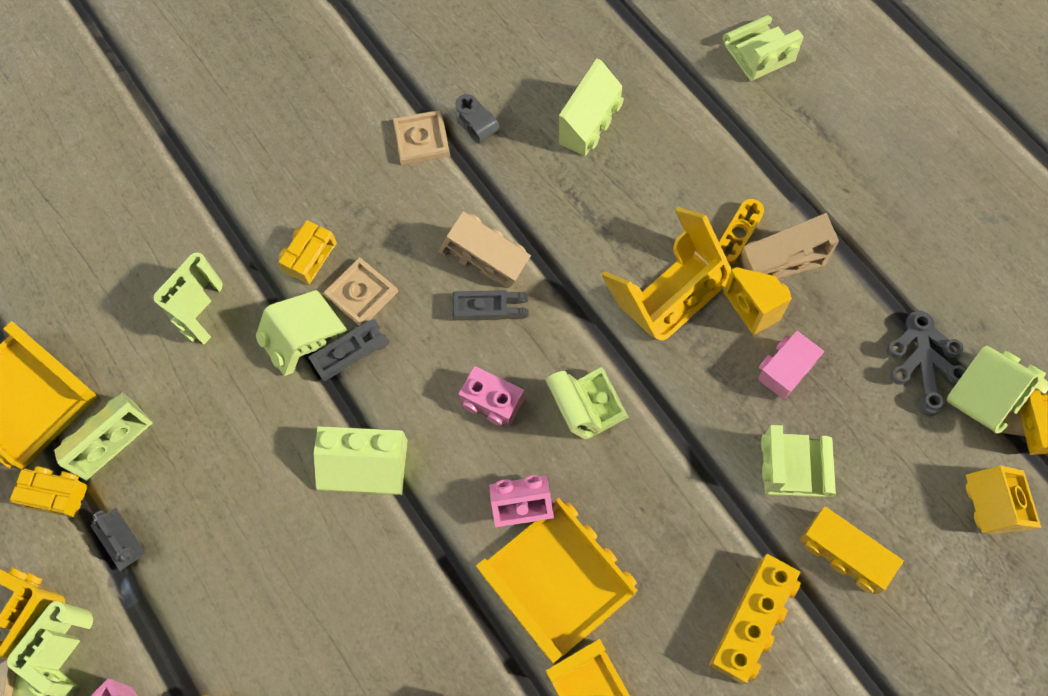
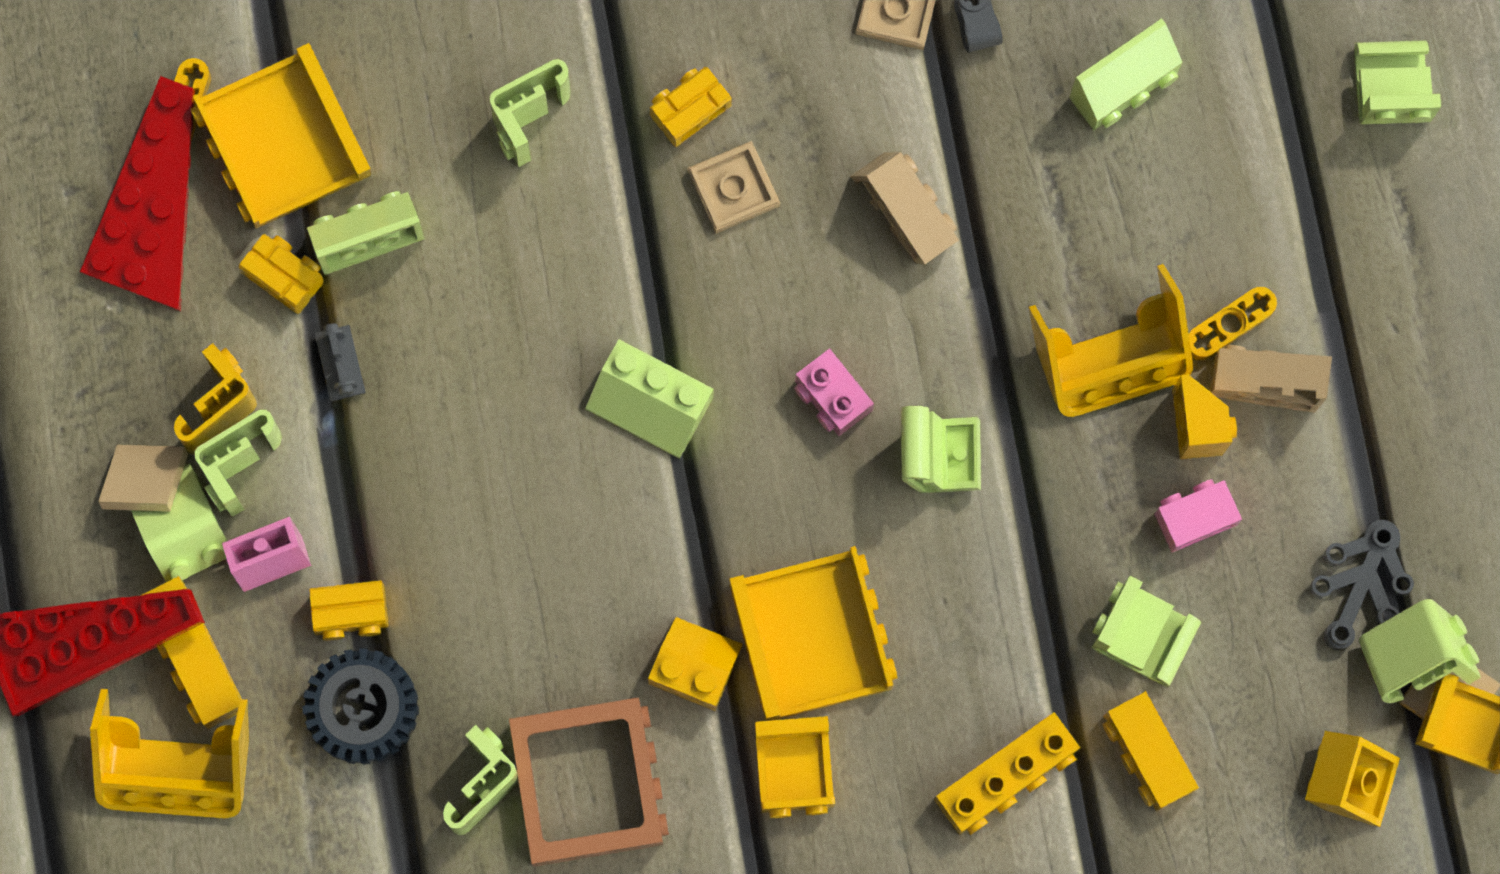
camera: 15 degrees right, 10 degrees up
(297, 328) = (641, 204): yellowish green piece -> none
(348, 349) = (689, 256): dark grey plate -> none
(478, 645) = (694, 663): none -> yellow slope
(488, 305) = (879, 276): dark grey hinge -> none
(521, 500) = (811, 529): bright pink brick -> none

